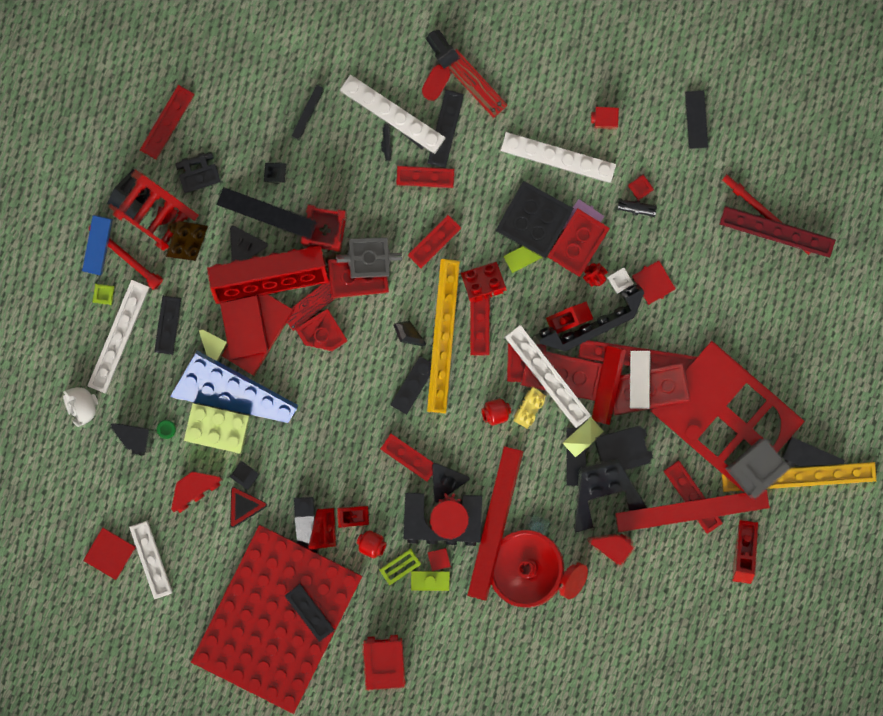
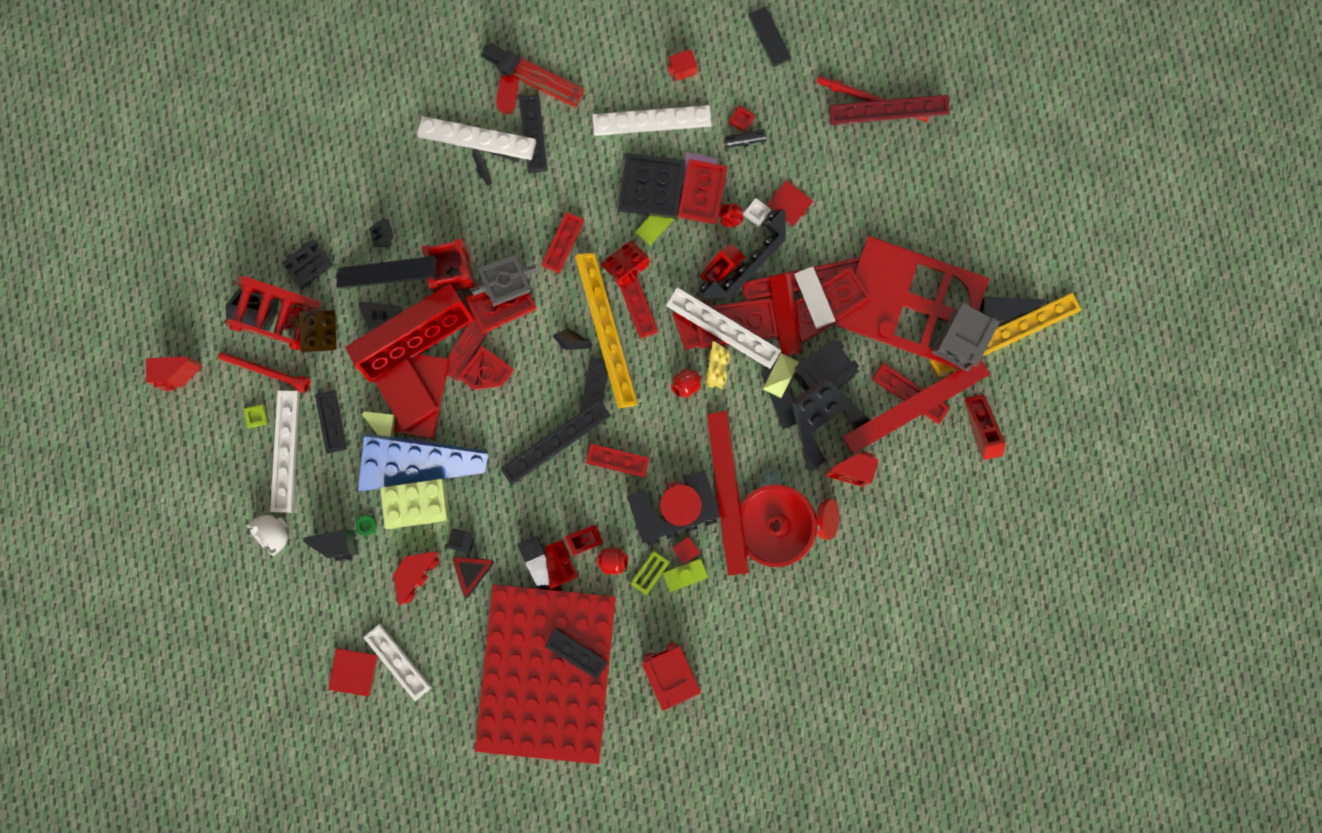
camera: 20 degrees left, 5 degrees down
(42, 228) = (170, 372): none -> red slope
(97, 245) = (231, 369): blue tile -> none
(167, 122) = (260, 227): red tile -> none
(307, 113) = (393, 166): black tile -> none
(360, 420) = (555, 442): none -> black tile
(425, 177) = (530, 186): red tile -> none
(446, 480) = (663, 469): black piece -> none

